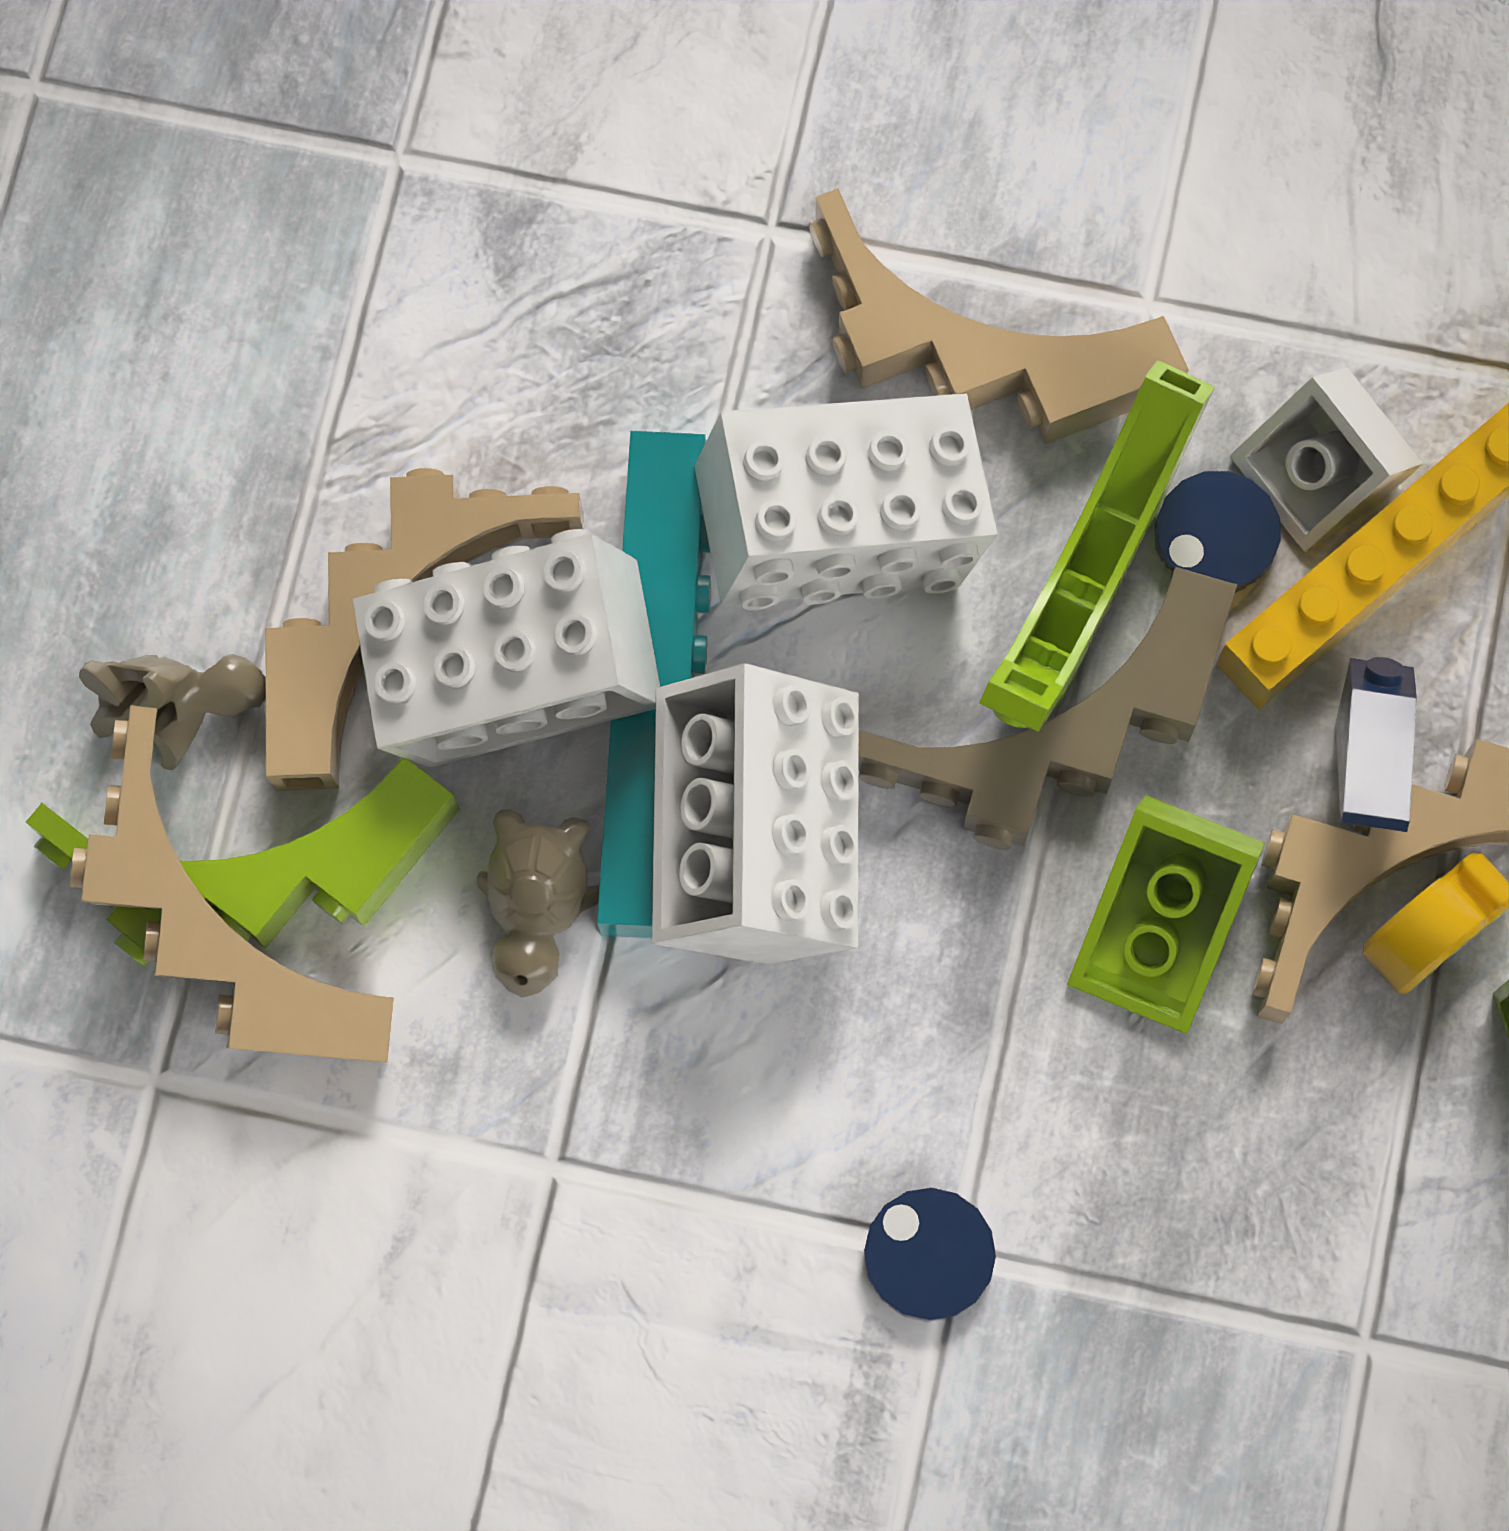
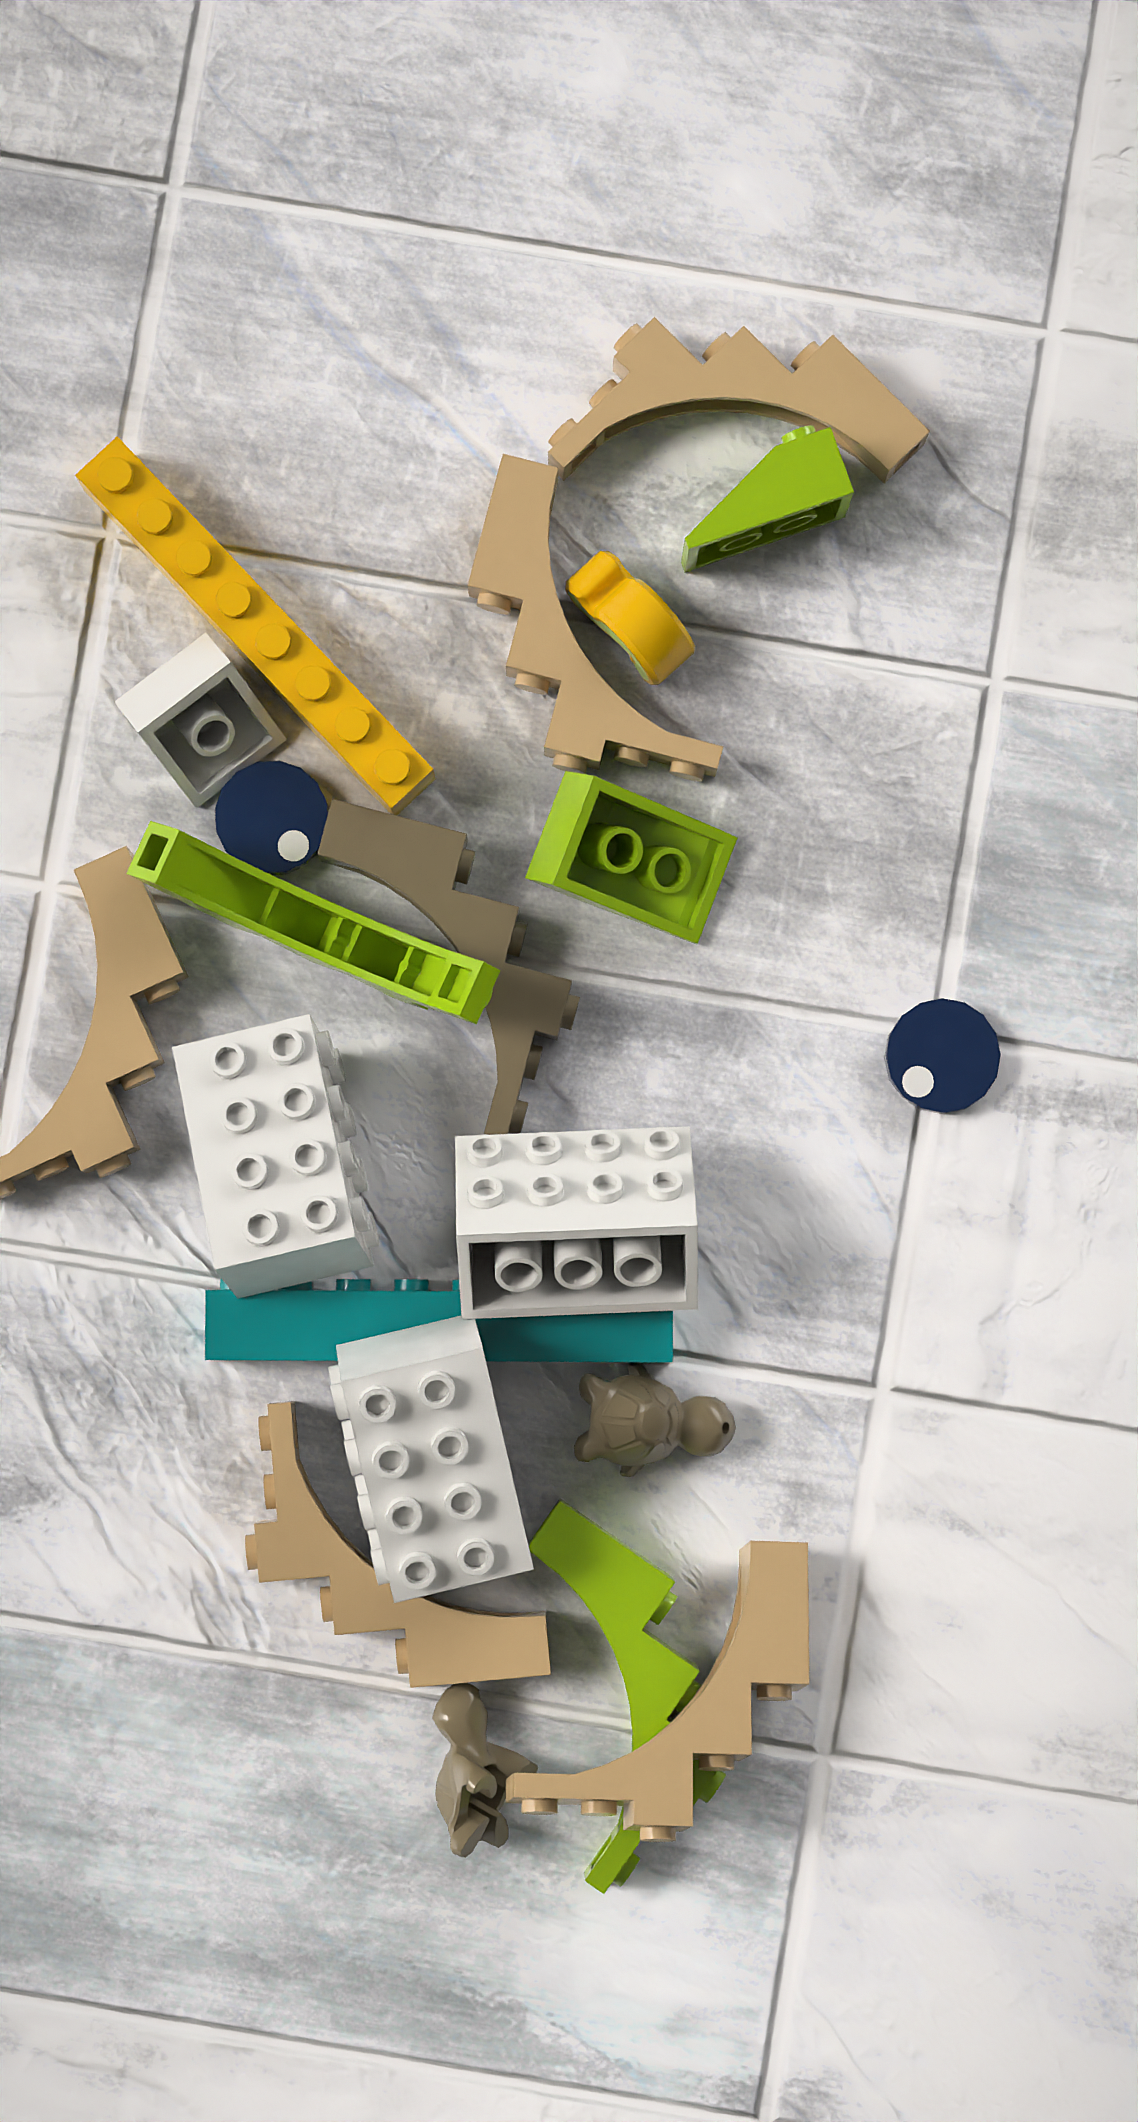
camera: 100 degrees left, 10 degrees up
(1376, 743) = (482, 673): slope -> none

